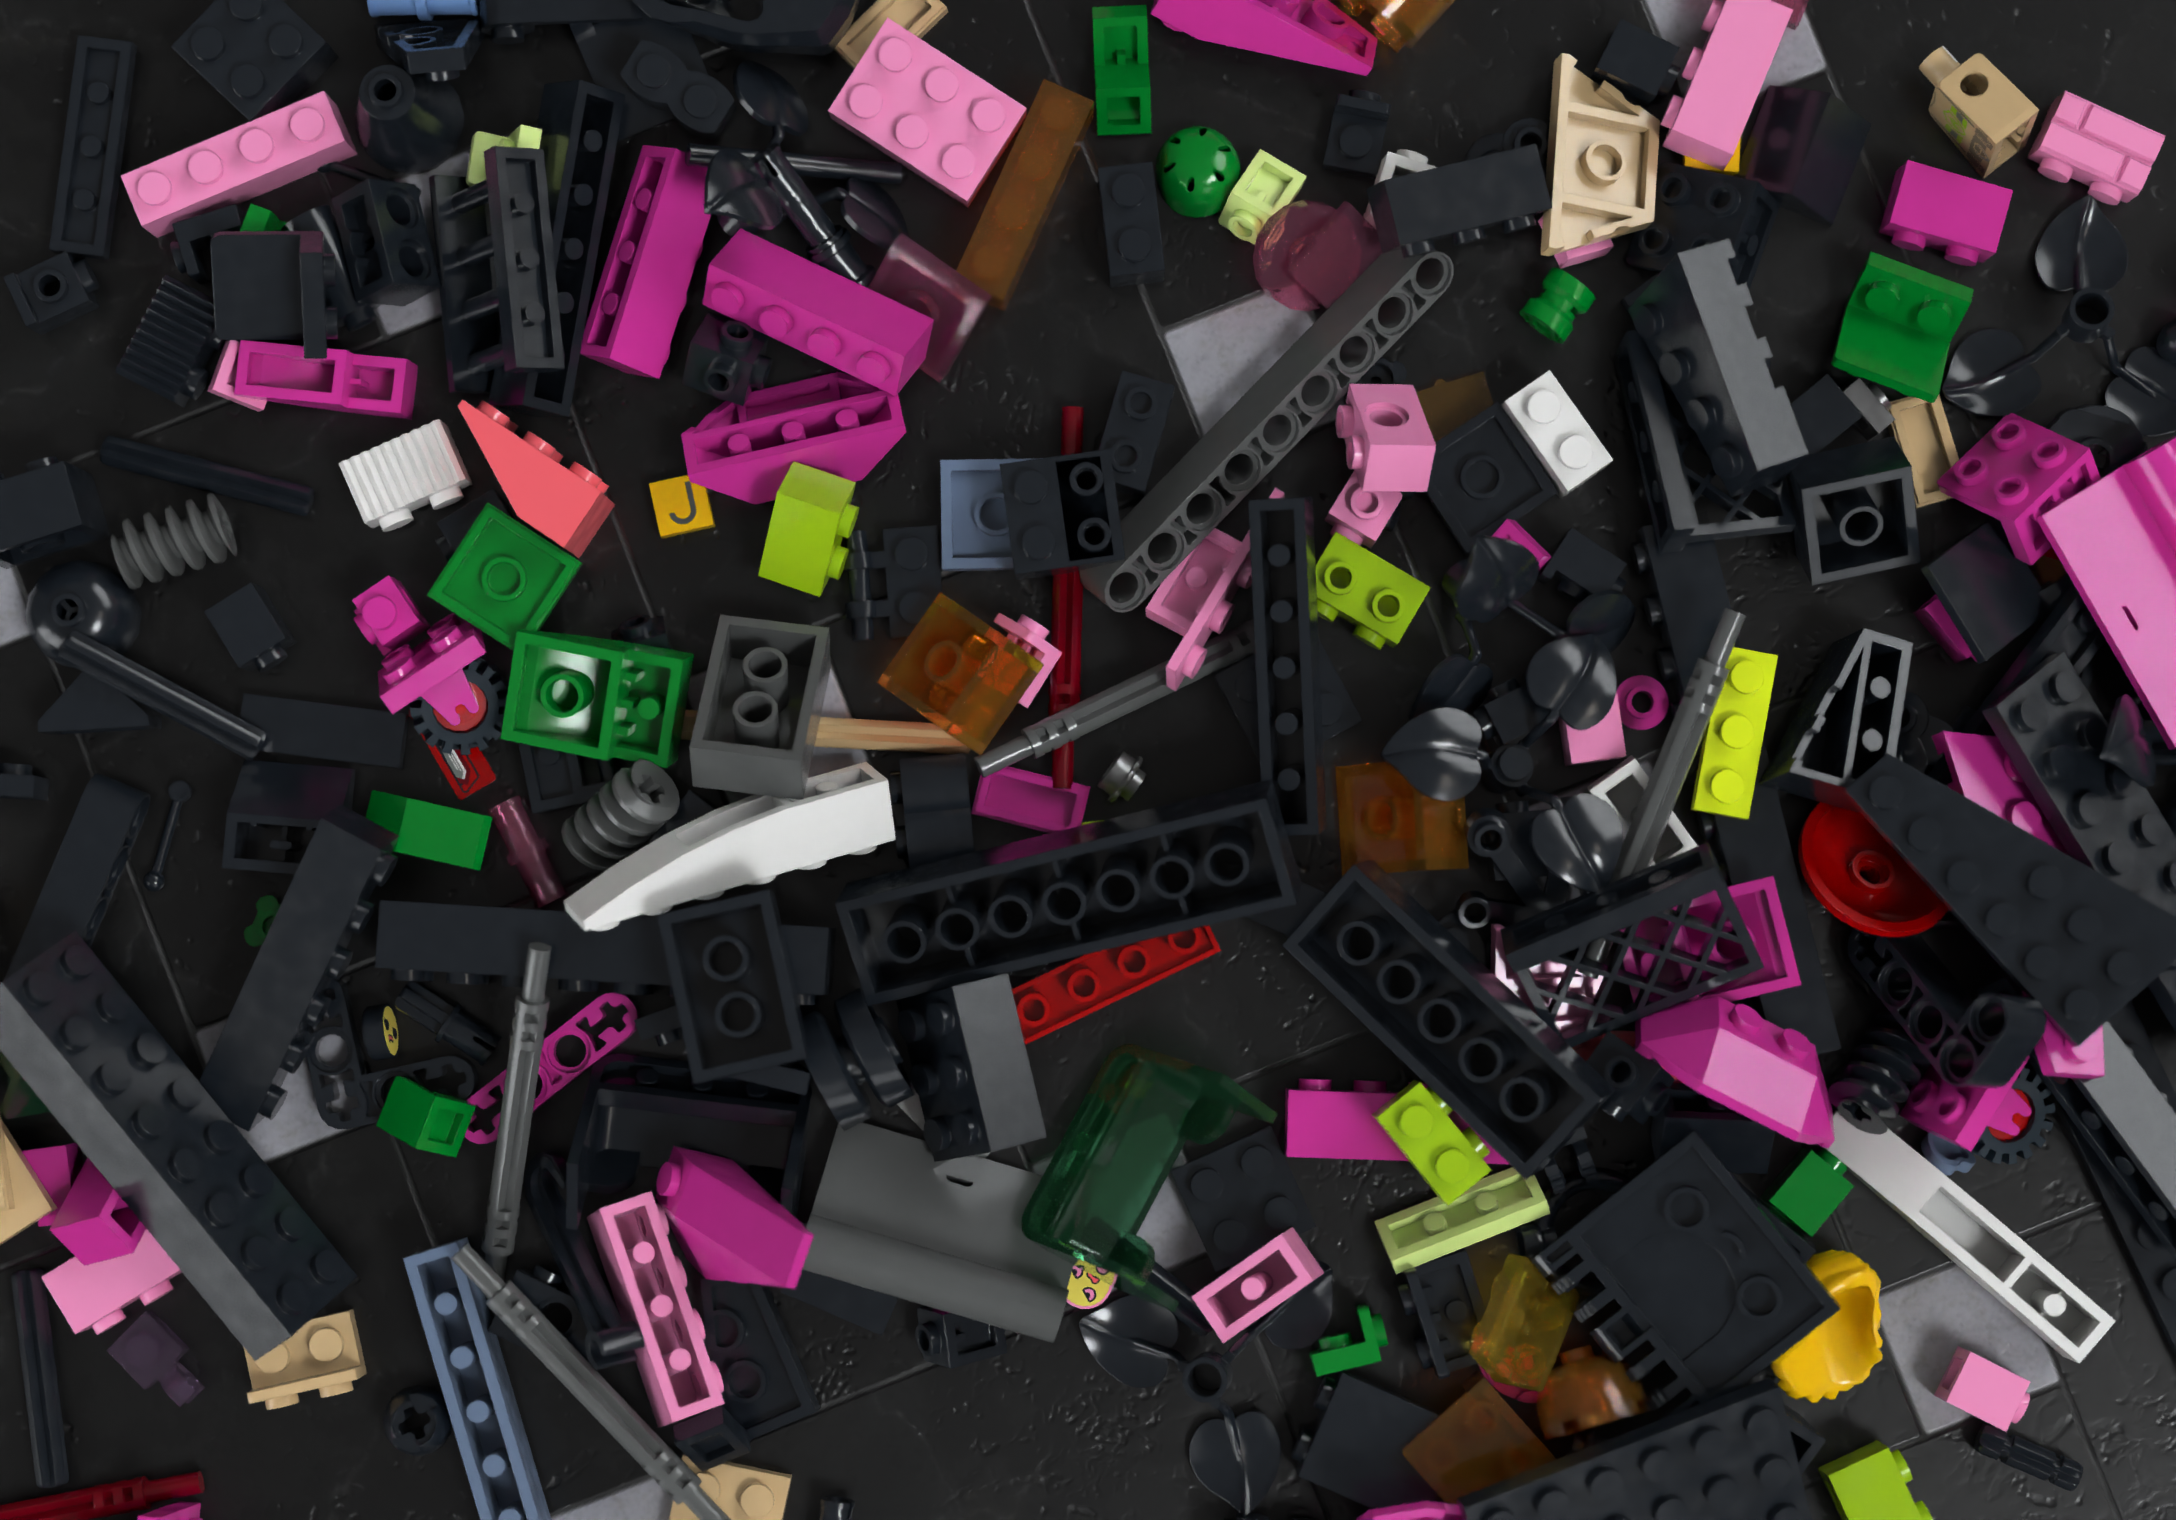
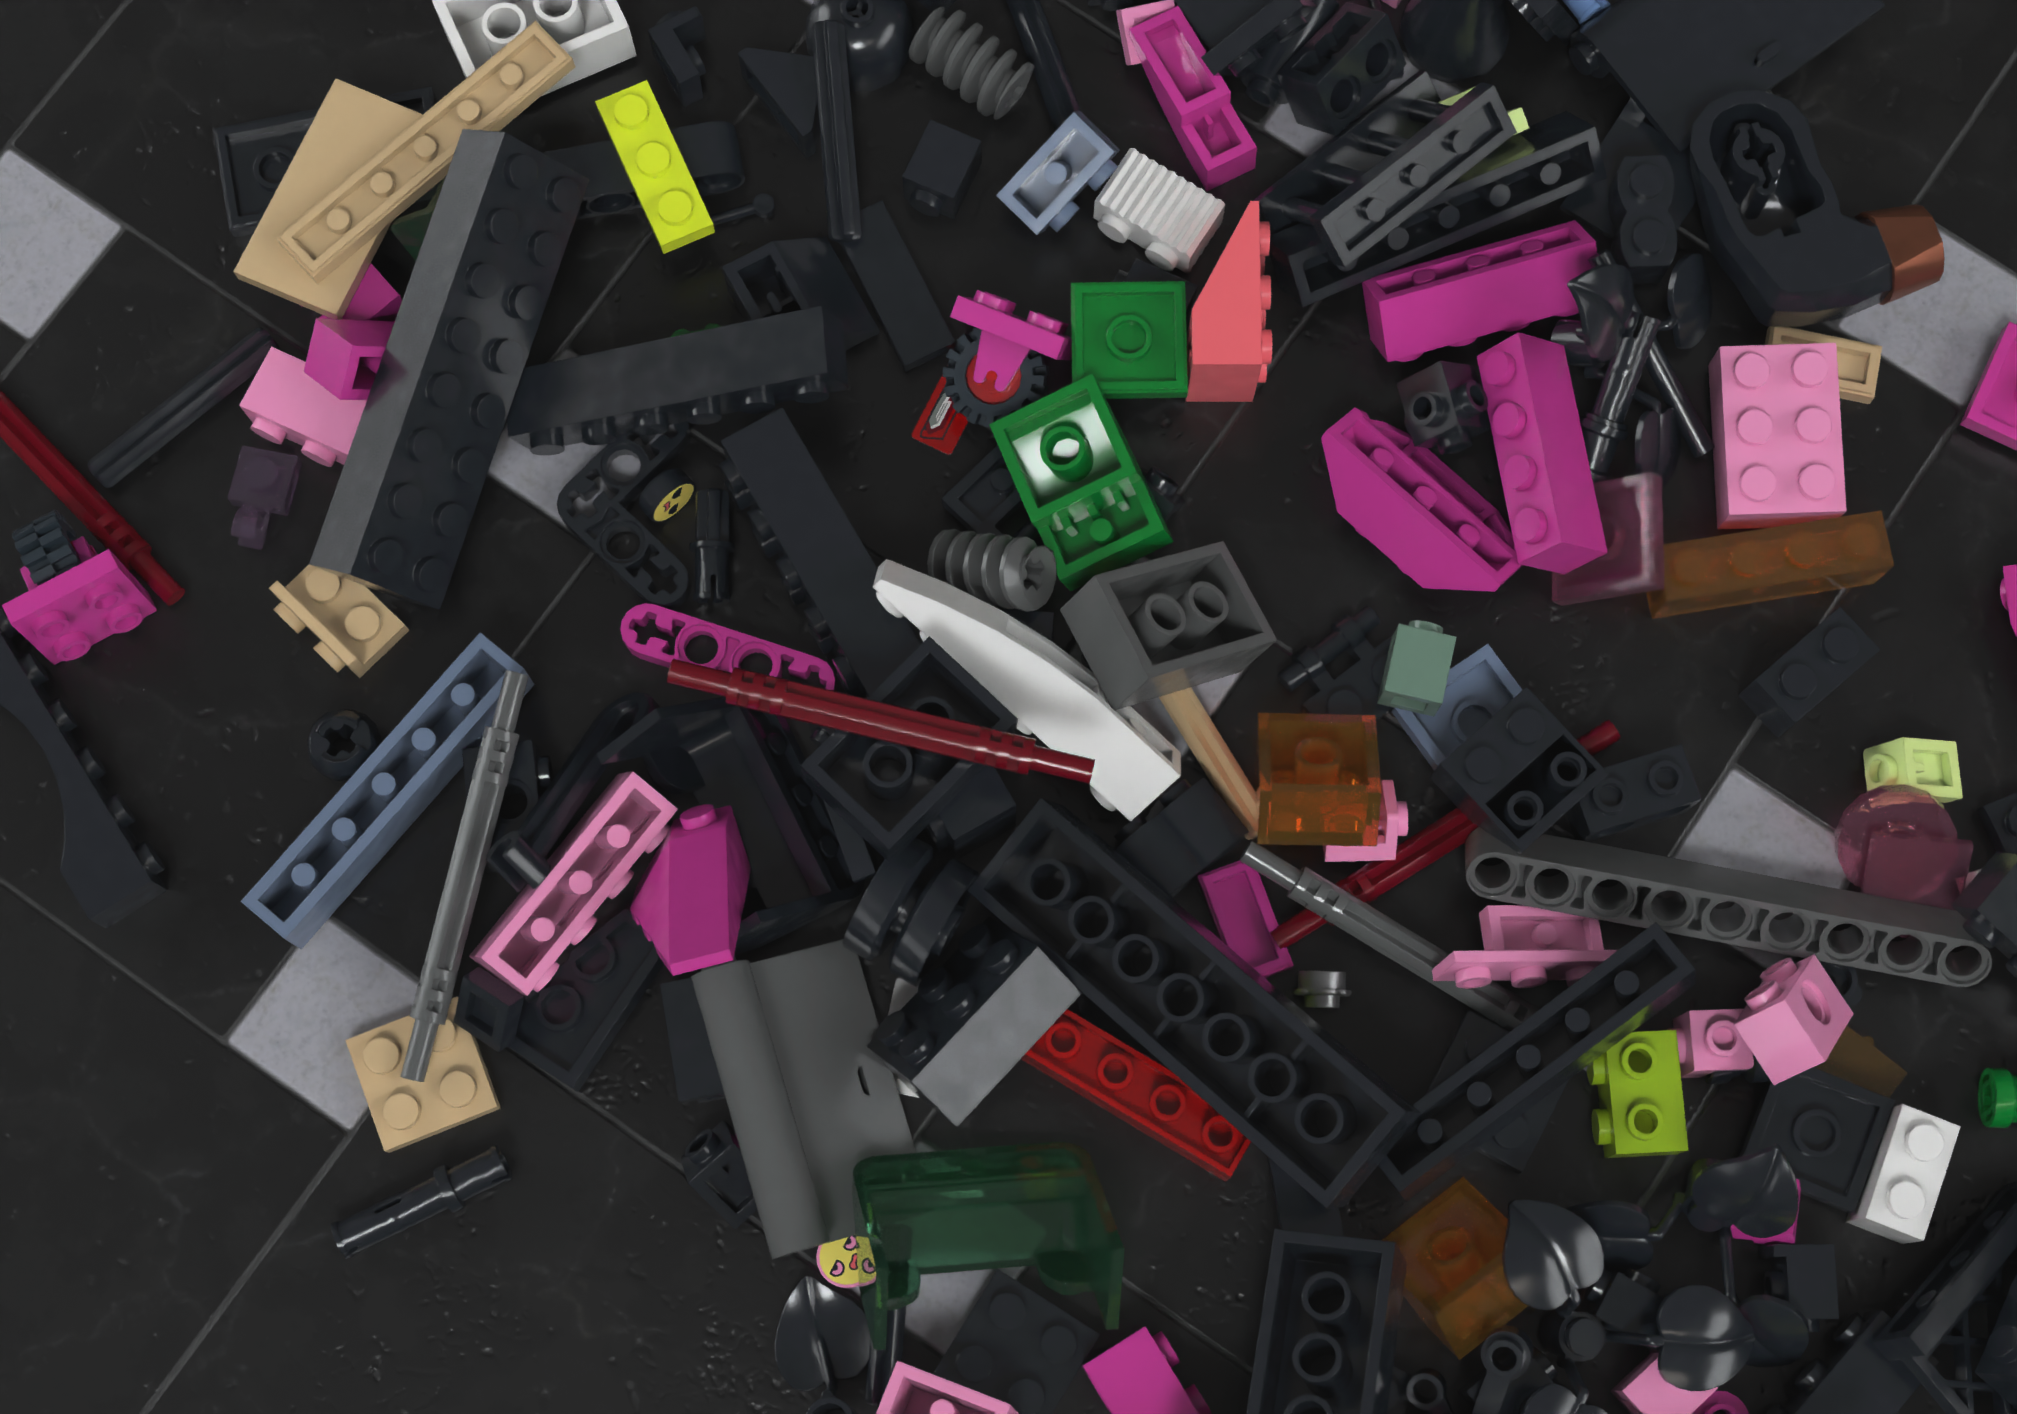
camera: 55 degrees right, 10 degrees down
(94, 865) = (655, 167): none -> neon yellow plate
(322, 537) = (1058, 173): none -> sand blue brick
(388, 615) = (1030, 271): dark pink brick -> none
(425, 1117) = (617, 577): green panel -> none
(432, 829) = (870, 425): green slope -> none
(516, 1110) = (678, 643): dark grey axle -> none
(527, 852) = (907, 513): clear pink pin -> none
(681, 506) = (1291, 455): yellow tile -> none
(701, 1000) = (880, 721): none -> dark red axle
(808, 528) = (1349, 566): lime brick -> none
(924, 532) = (1417, 668): none -> sand green brick
(1121, 70) = (1933, 578): green slope -> none
(1197, 162) = (1906, 691): green helmet -> none

